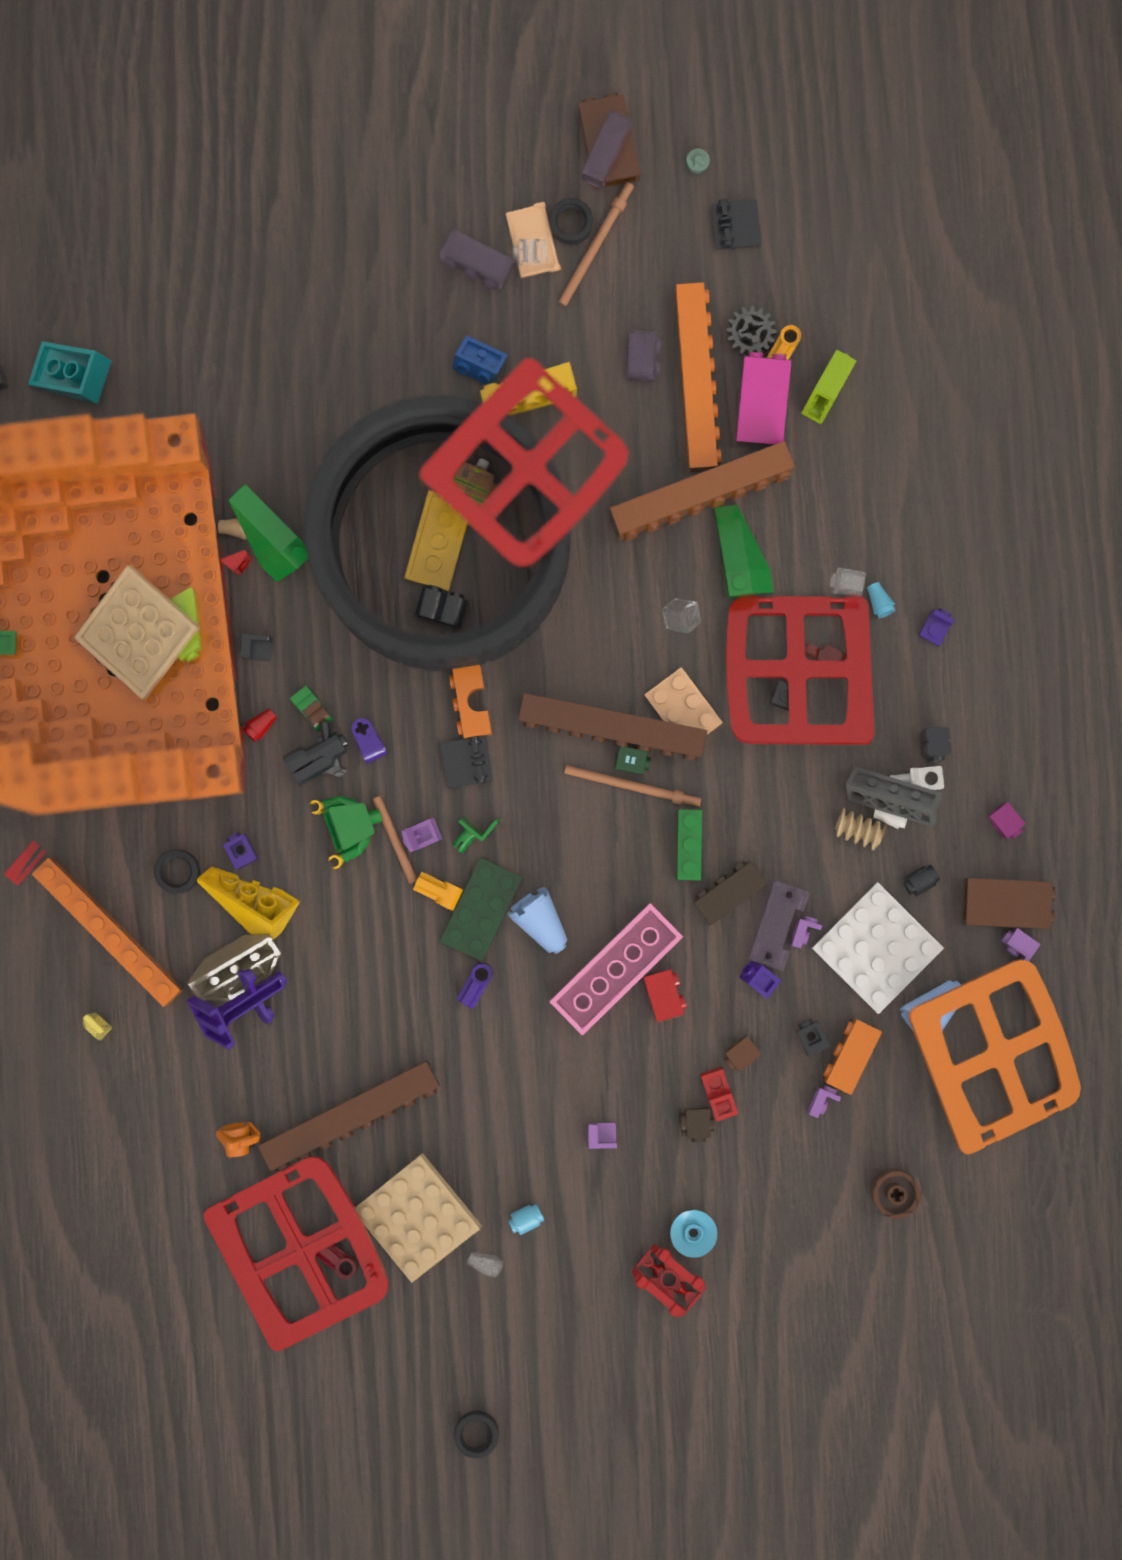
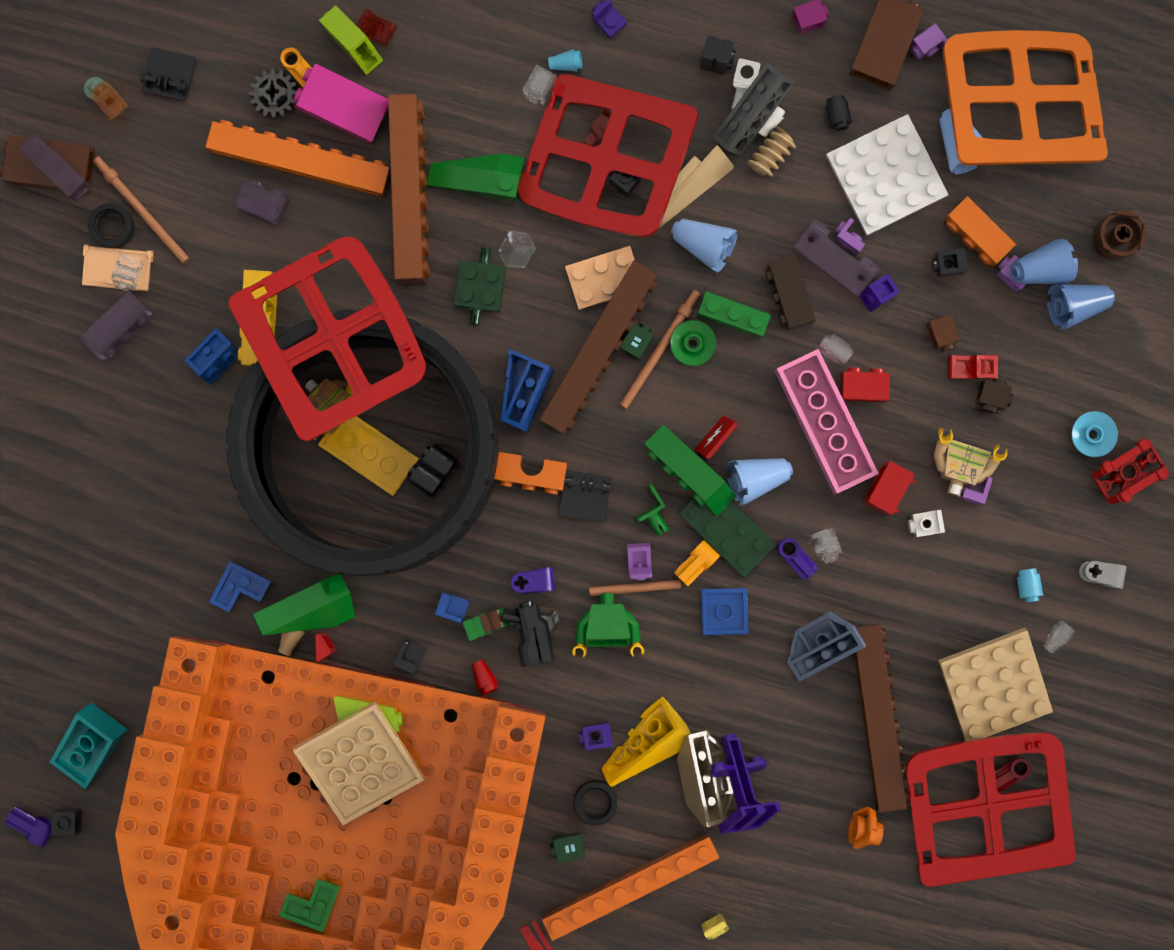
camera: 70 degrees left, 0 degrees up
(125, 859) = (567, 847): none -> dark green brick
(272, 457) = (237, 581): none -> blue plate
(316, 671) = (452, 607): none -> blue panel
(399, 1036) = (822, 644): none -> sand blue wedge
(401, 933) = (724, 611): none -> blue plate
(498, 1009) = (826, 545): none -> clear brick
(524, 853) = (691, 470): none -> green wedge
(547, 668) = (524, 389): none -> blue wedge
(558, 1105) = (936, 523): none -> white brick
(561, 1290) = (1106, 574): none -> light grey piece
(565, 868) = (716, 437): none -> red slope
(571, 1050) = (888, 488): none -> red container
(622, 1115) = (964, 463): none -> tan torso
(634, 592) = (480, 286): none -> dark green plate
(661, 815) = (695, 331): none -> green dish
(690, 177) = (108, 99): none -> clear orange brick
(690, 955) = (836, 349): none -> clear brick
(750, 794) = (705, 241): none -> light blue cone
(806, 763) = (696, 179): none -> tan wedge
(816, 1175) = (1077, 302): none -> medium blue cone
(840, 1130) = (1046, 265): none -> medium blue cone
(849, 406) = (376, 28): none -> clear red bracket

